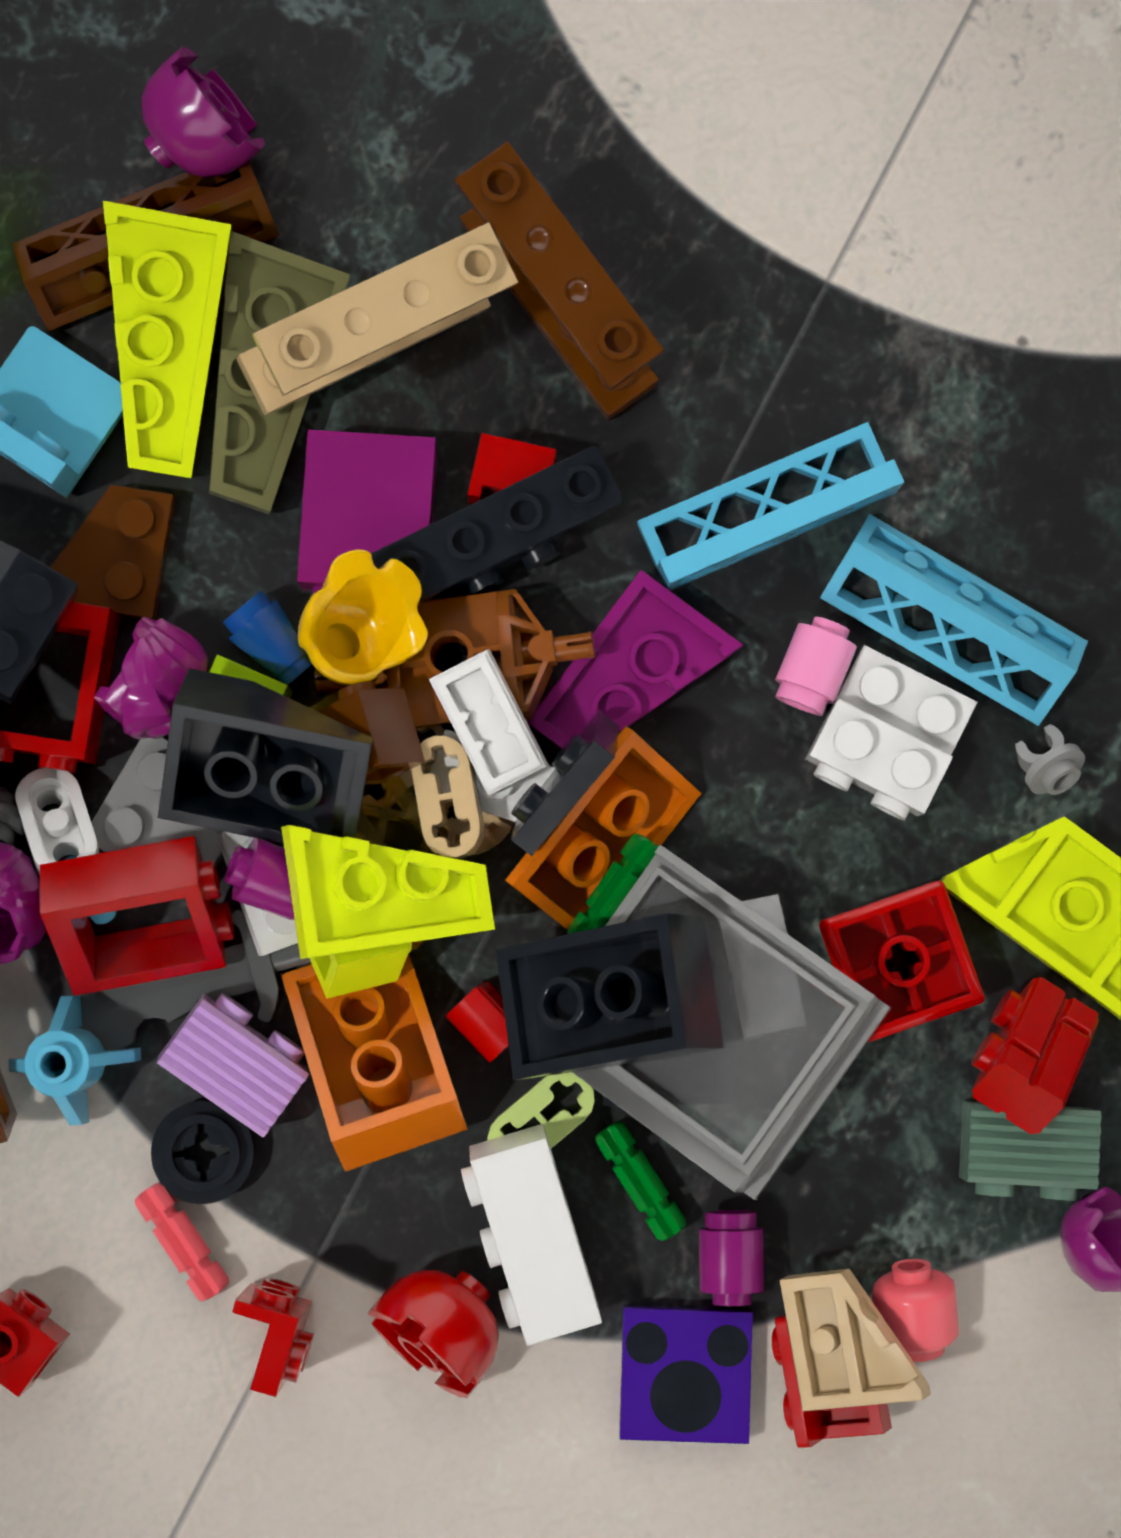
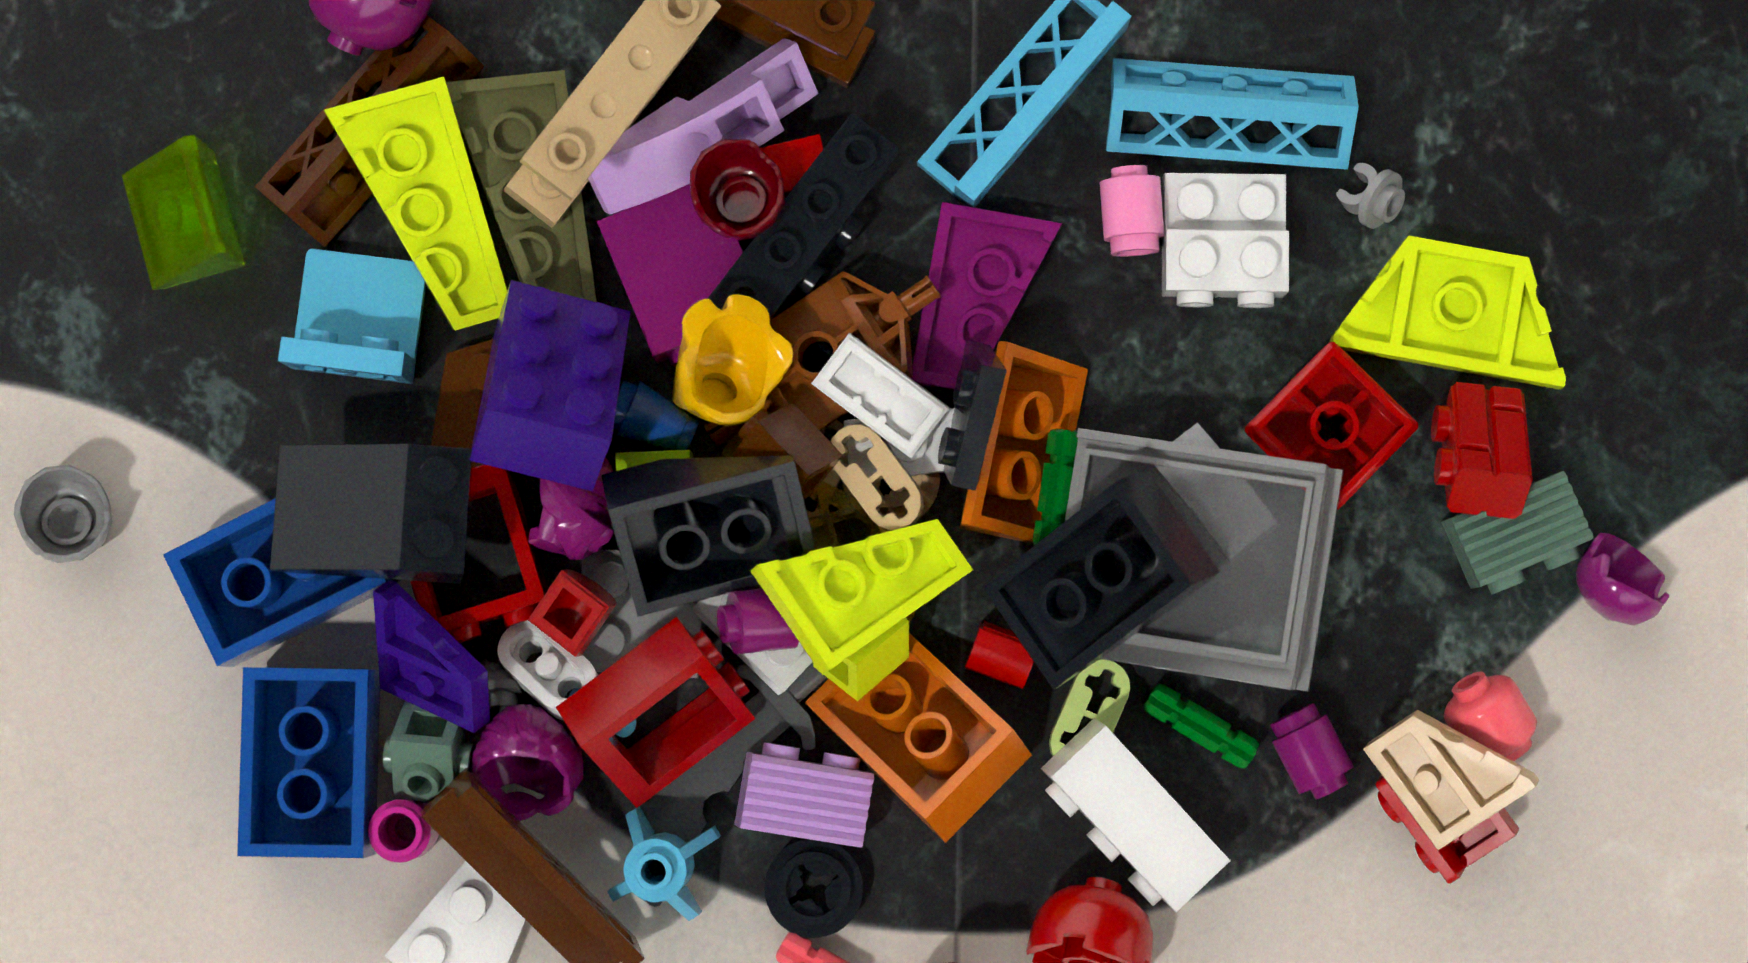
camera: 25 degrees left, 0 degrees up
(104, 782) = (573, 611): none -> red brick
(184, 562) = (551, 386): none -> dark purple brick
(449, 397) = (664, 146): none -> lavender slope
(449, 462) = (736, 189): none -> dark red hair
(685, 1374) = (1321, 872): dark purple tile -> none

